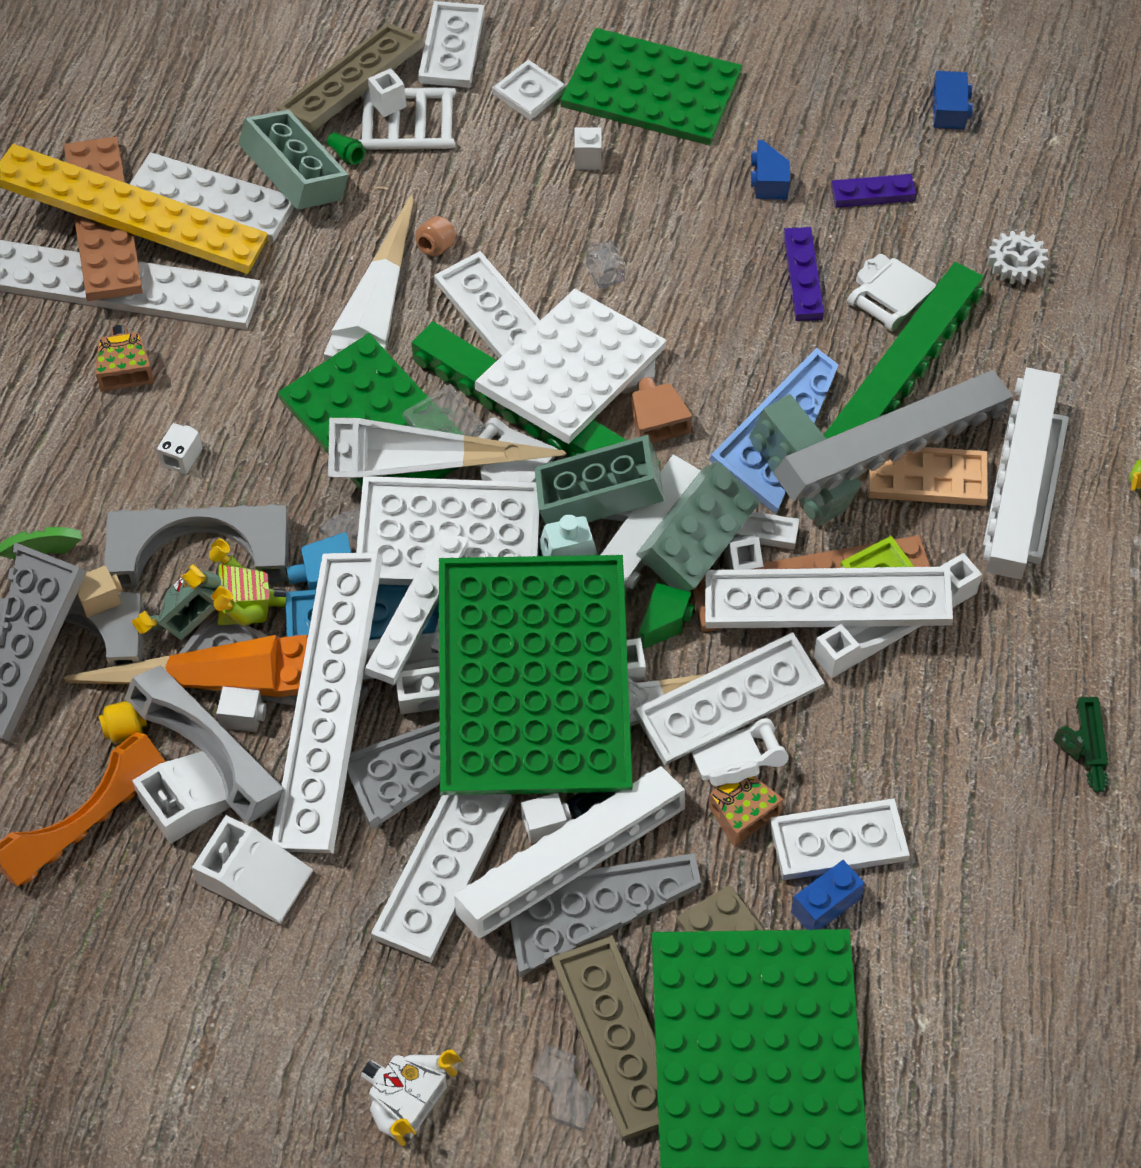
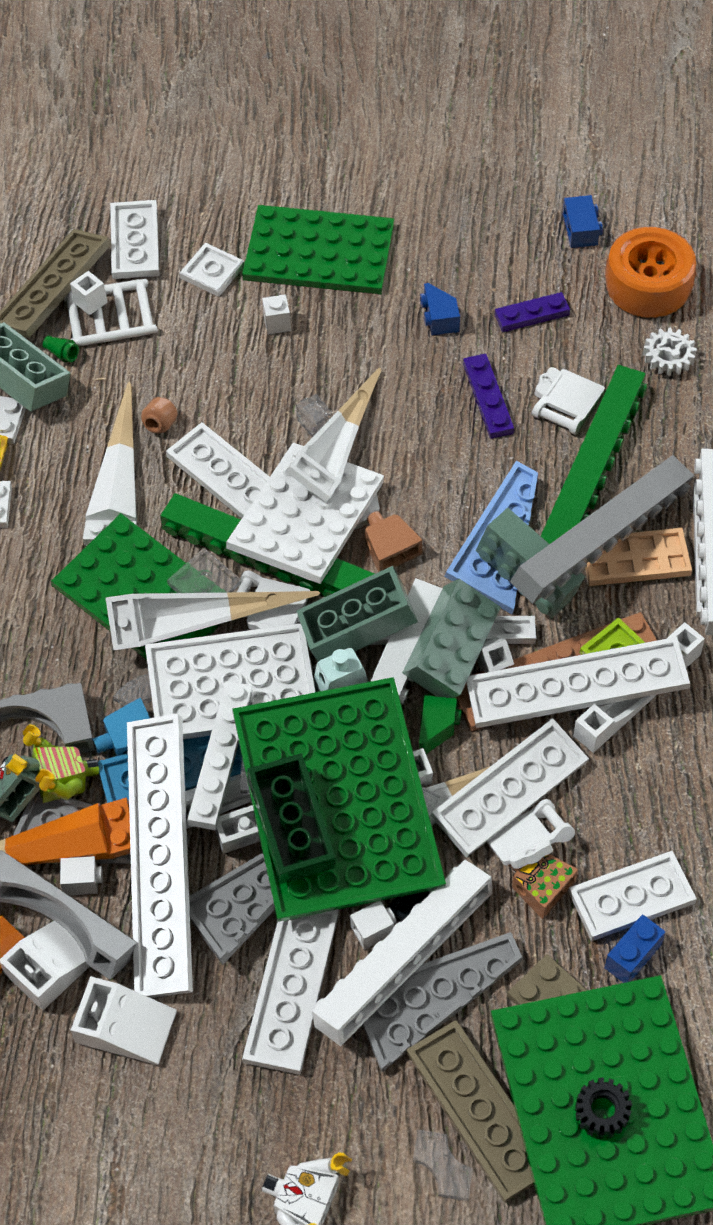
camera: 10 degrees left, 0 degrees up
(475, 685) = (291, 818): none -> dark green brick
(602, 309) = (324, 457): none -> white plate
(750, 1077) = (598, 1125): none -> black tyre
(1016, 185) = (642, 286): none -> orange wheel

